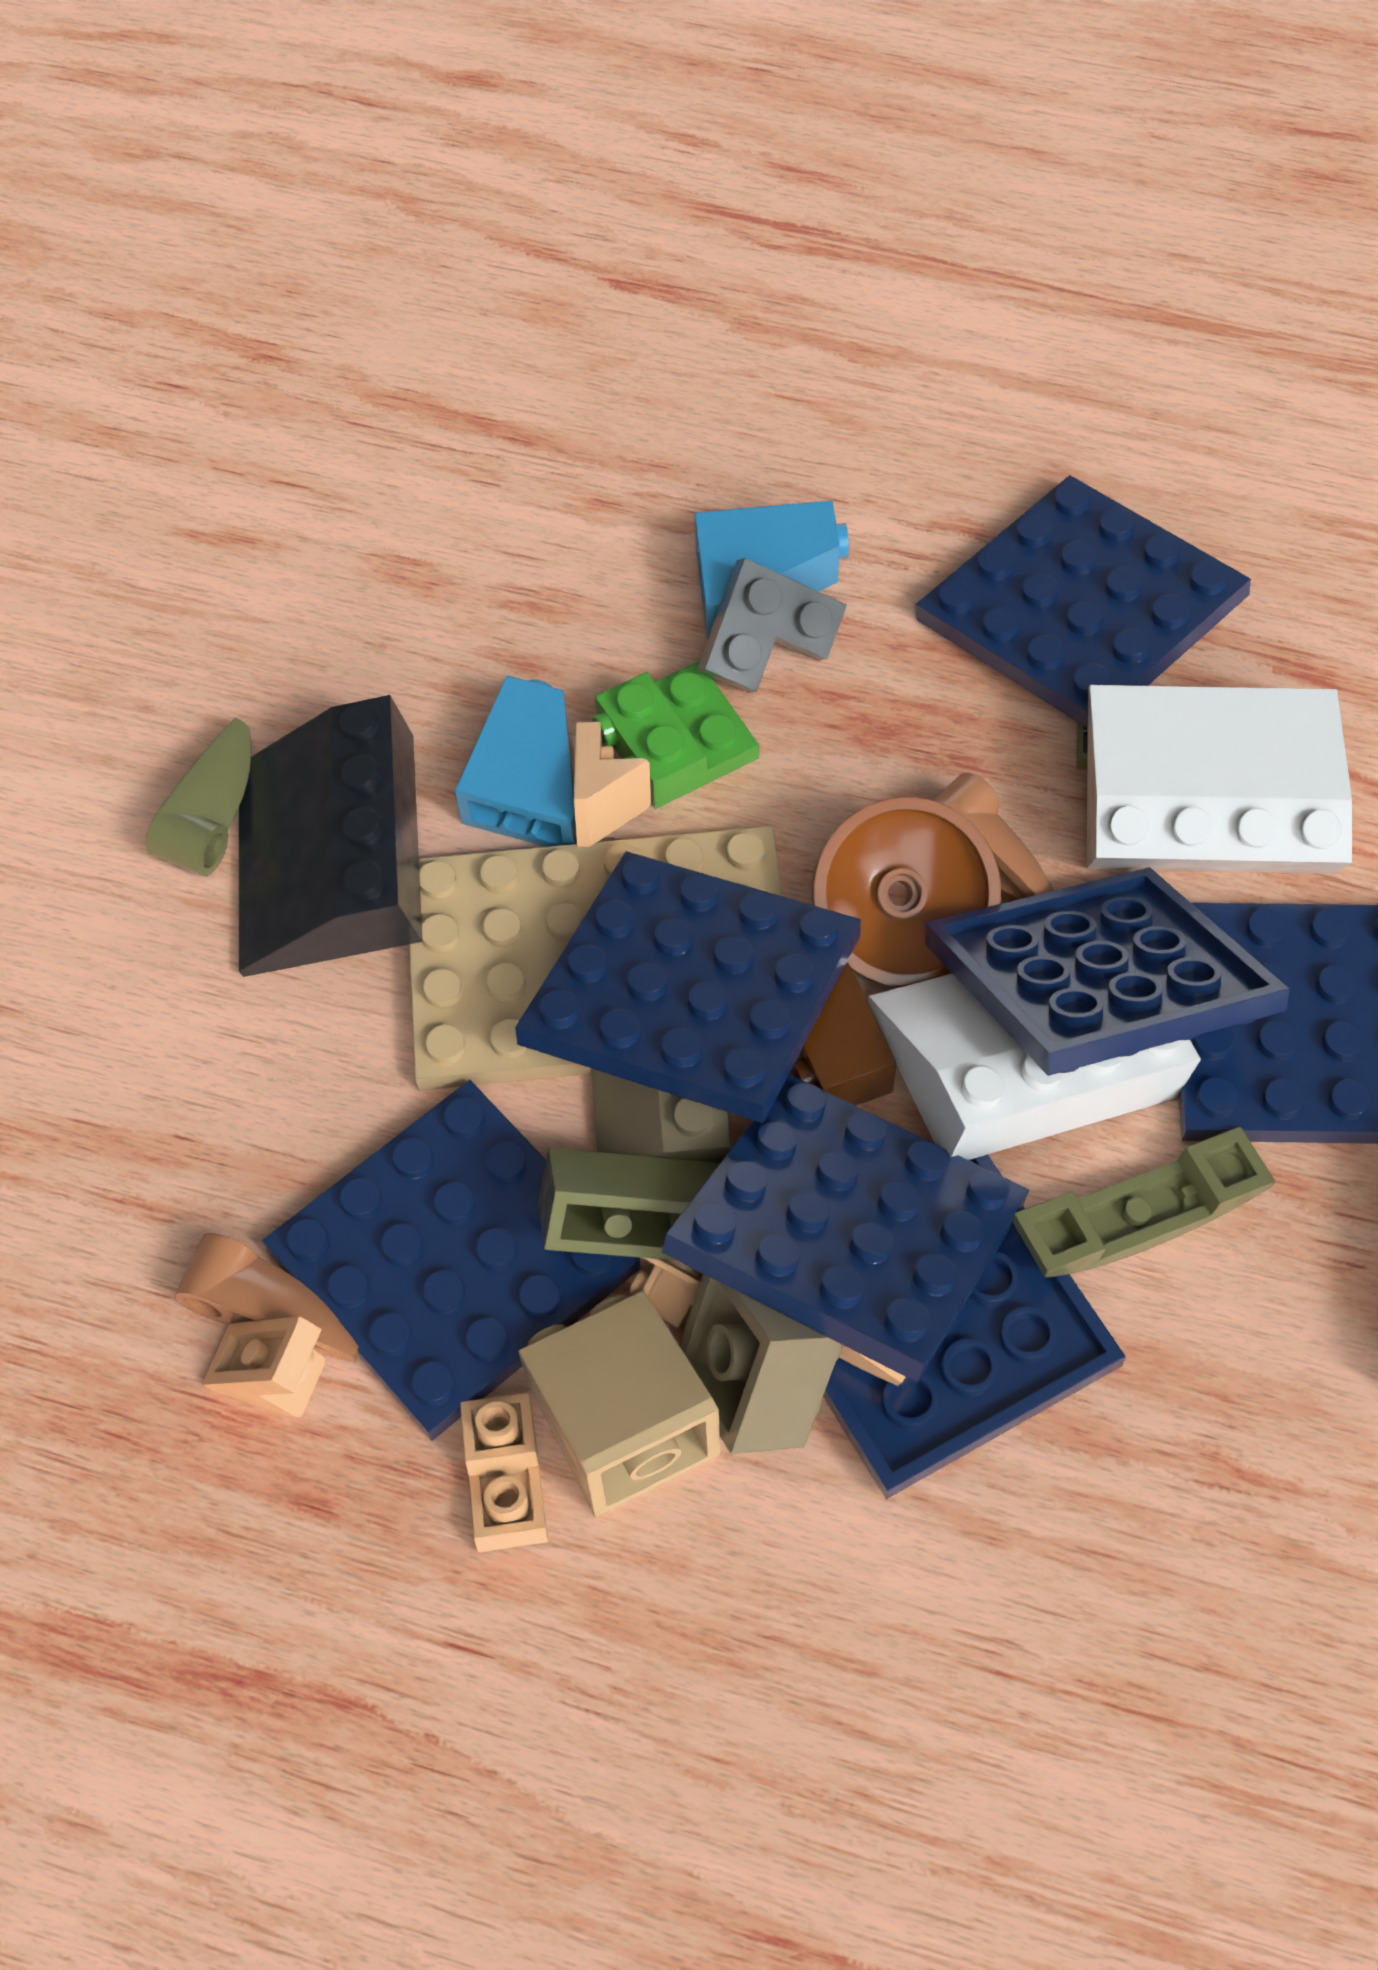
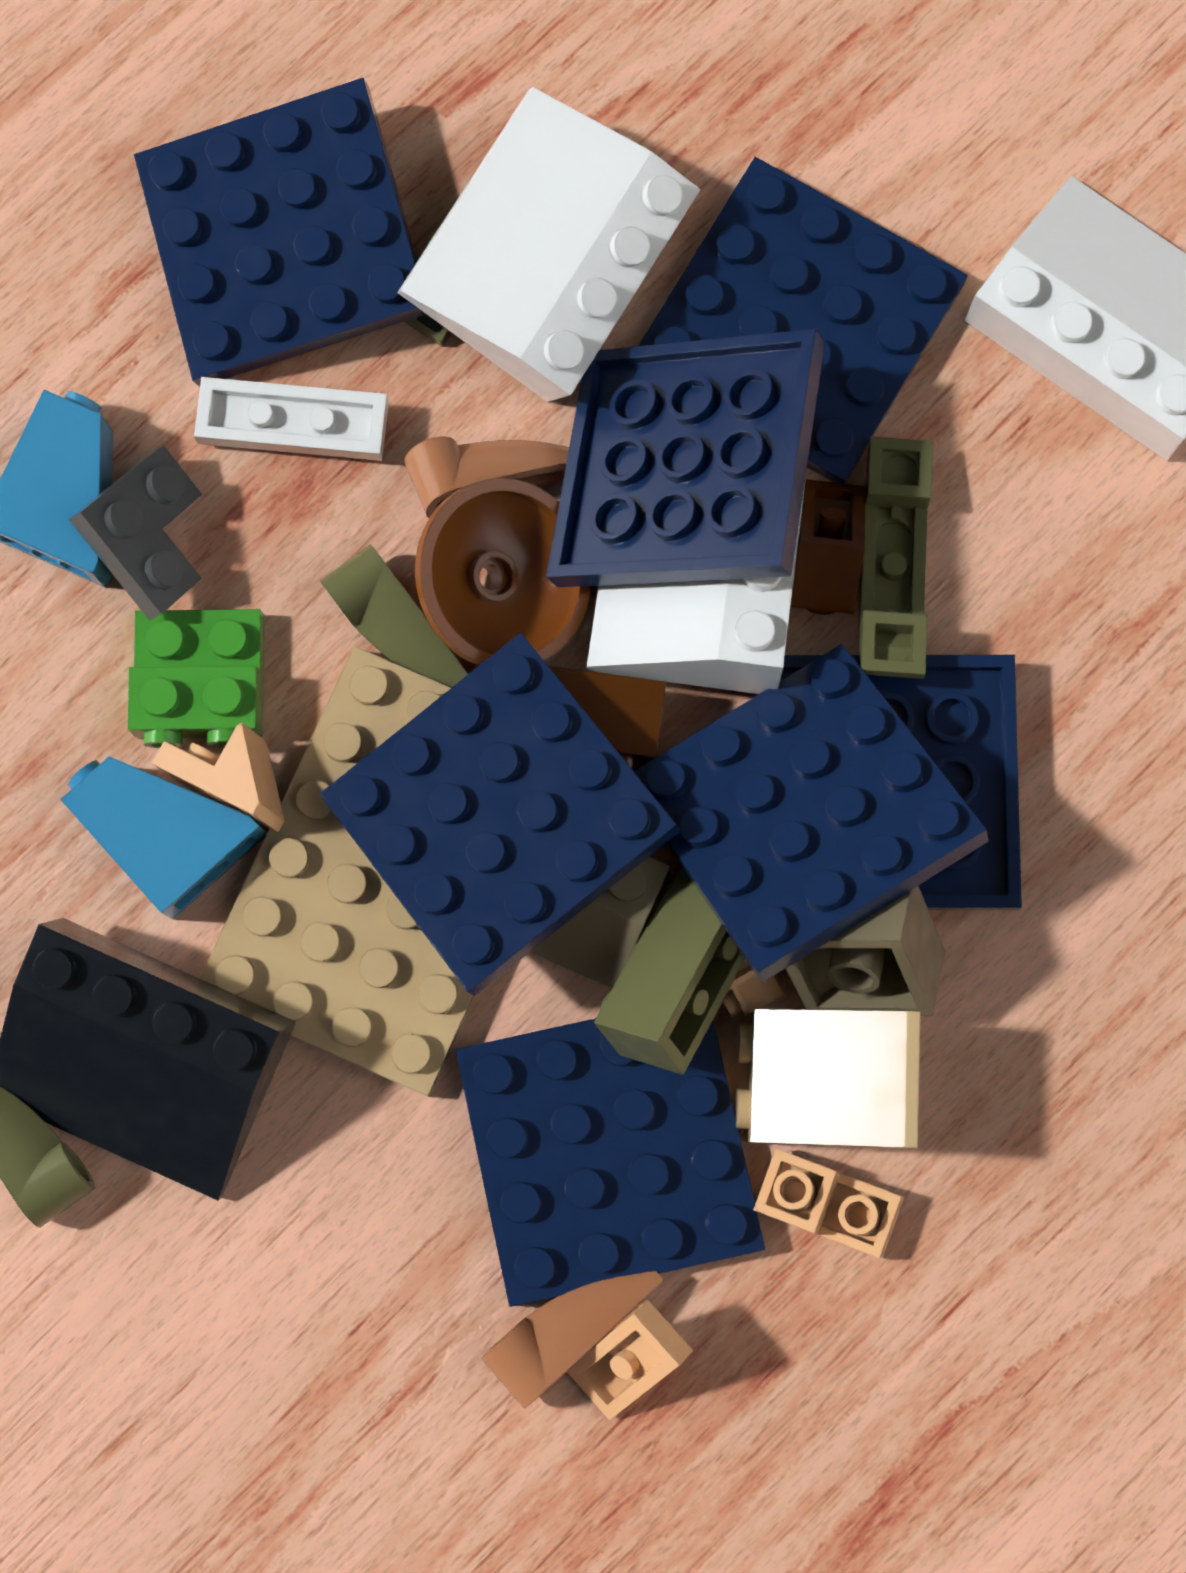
camera: 60 degrees left, 20 degrees up
(815, 812) = (390, 617): none -> olive piece
(934, 687) = (291, 418): none -> white plate
(1110, 1141) = (829, 547): none -> reddish brown slope

